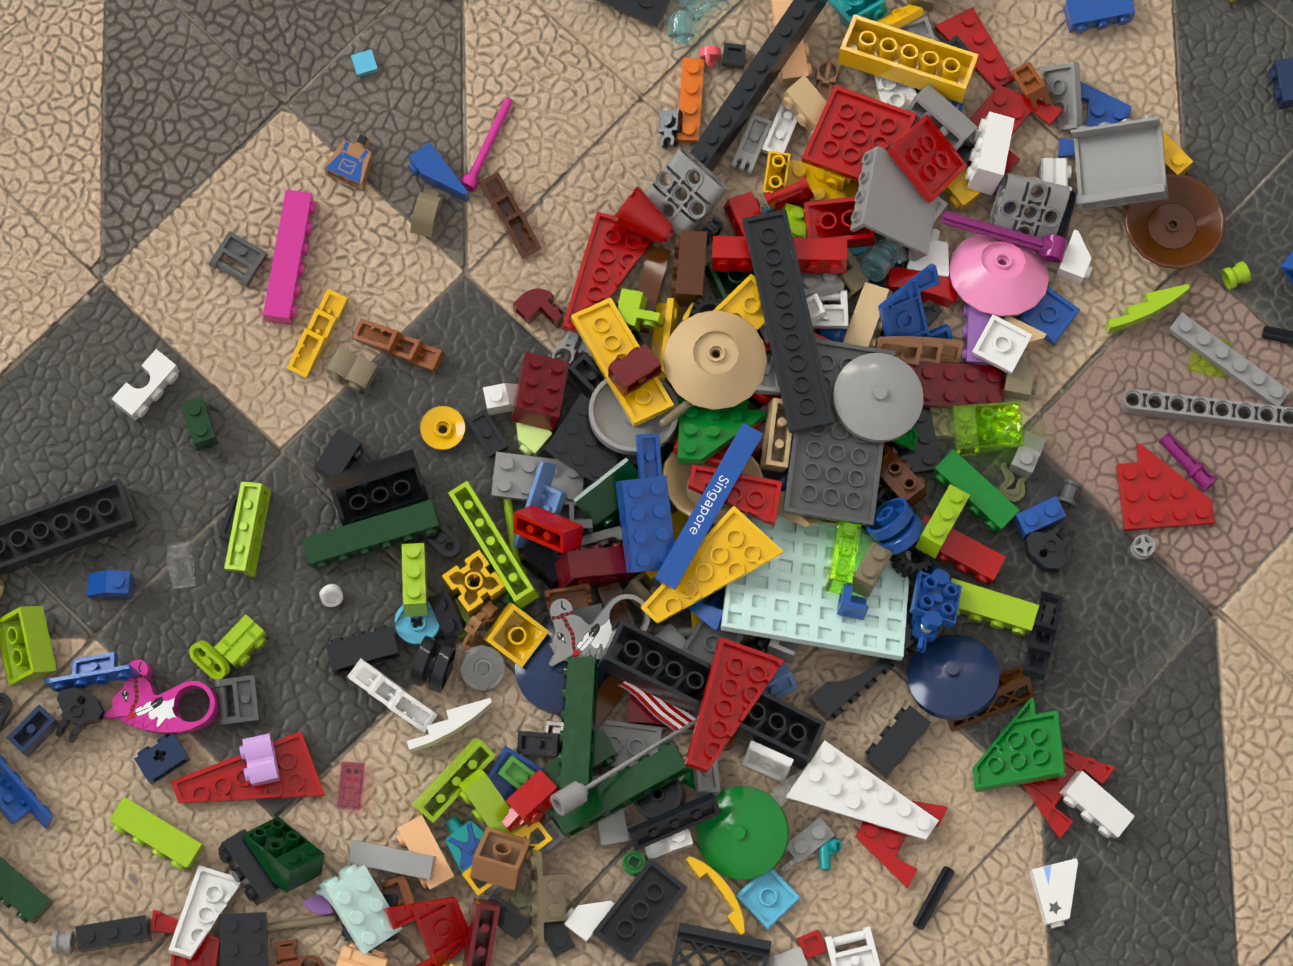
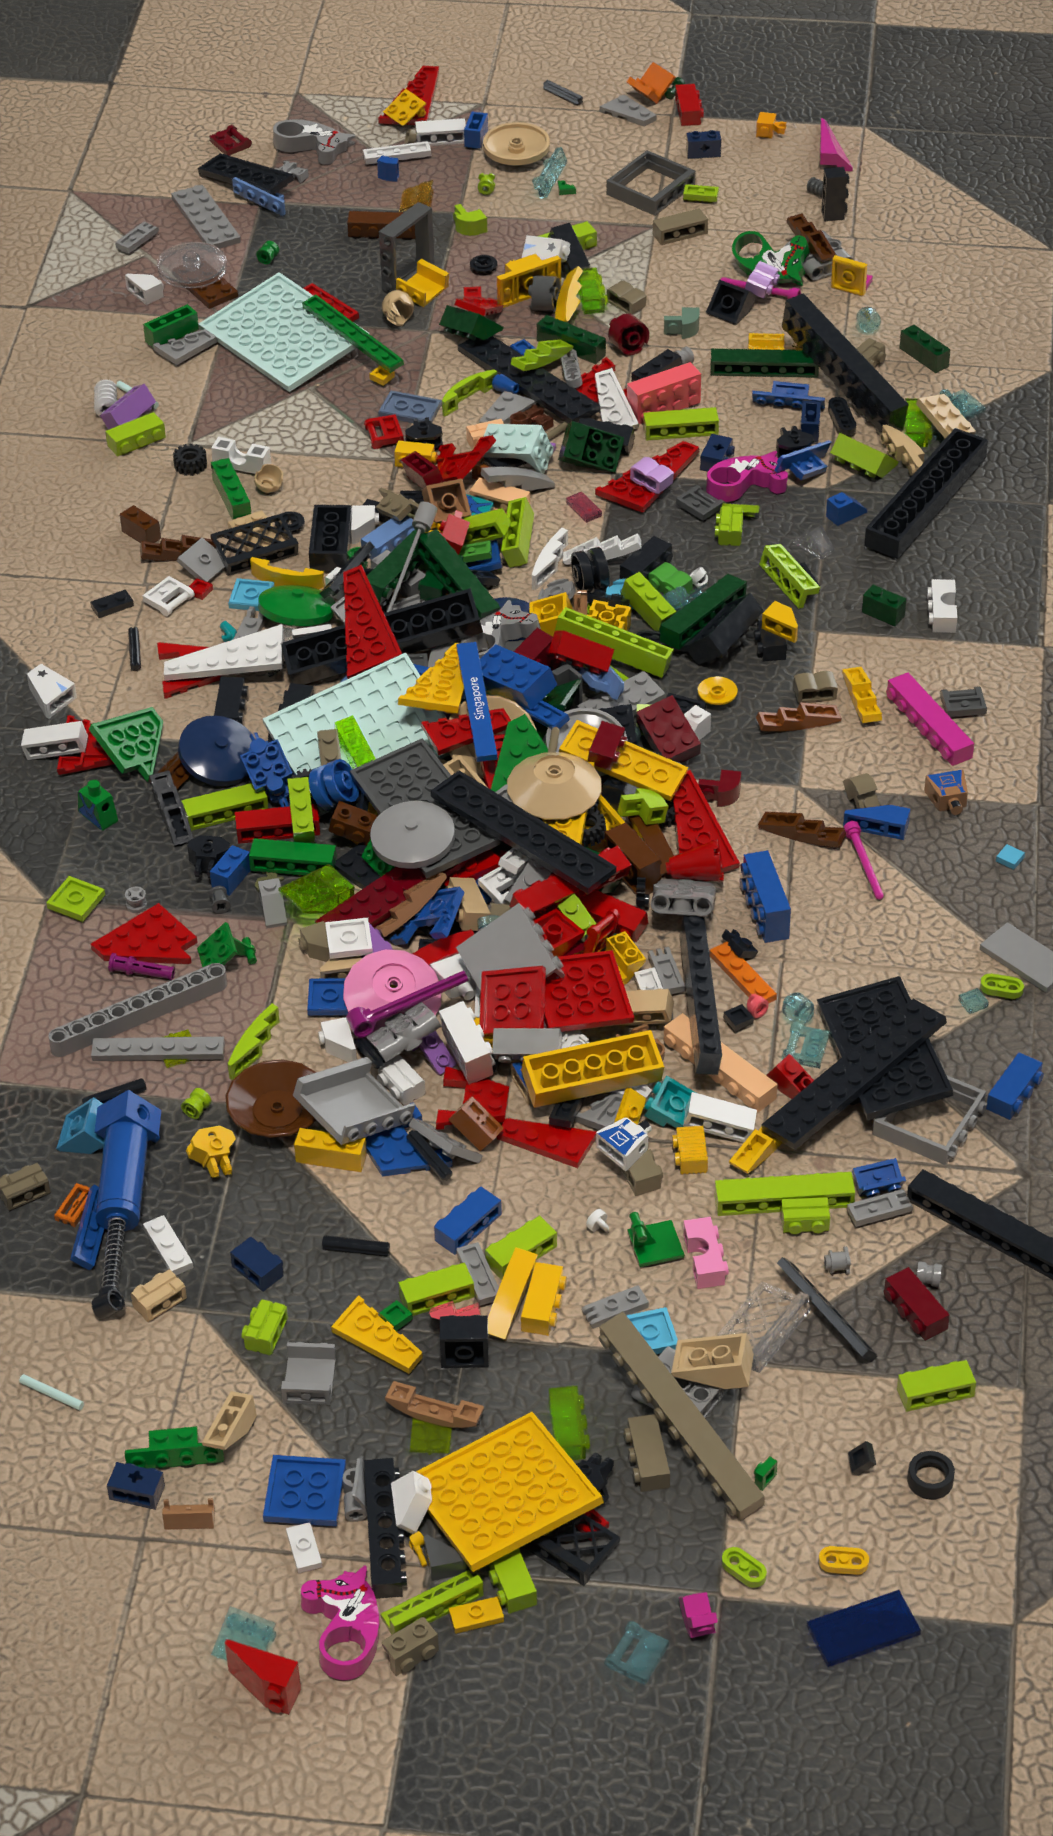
camera: 145 degrees right, 30 degrees down
(139, 882) = (665, 391): none -> coral brick
(322, 451) = (780, 621): none -> yellow slope
(363, 605) = (667, 578): none -> bright green brick
(375, 567) = (679, 597): none -> clear light blue hinge
(584, 873) = (388, 535): none -> medium blue brick
(613, 148) = (765, 896): none -> blue brick
(851, 605) = (323, 720): blue panel -> none
(1087, 87) = (429, 1155): none -> black axle
(1109, 687) = (97, 805): none -> green torso
(1112, 426) = (222, 947): none -> green plate
(1194, 587) = (75, 898): none -> lime plate
(1198, 52) = (356, 1245): none -> black axle
(1255, 212) = (212, 1149): none -> yellow hinge

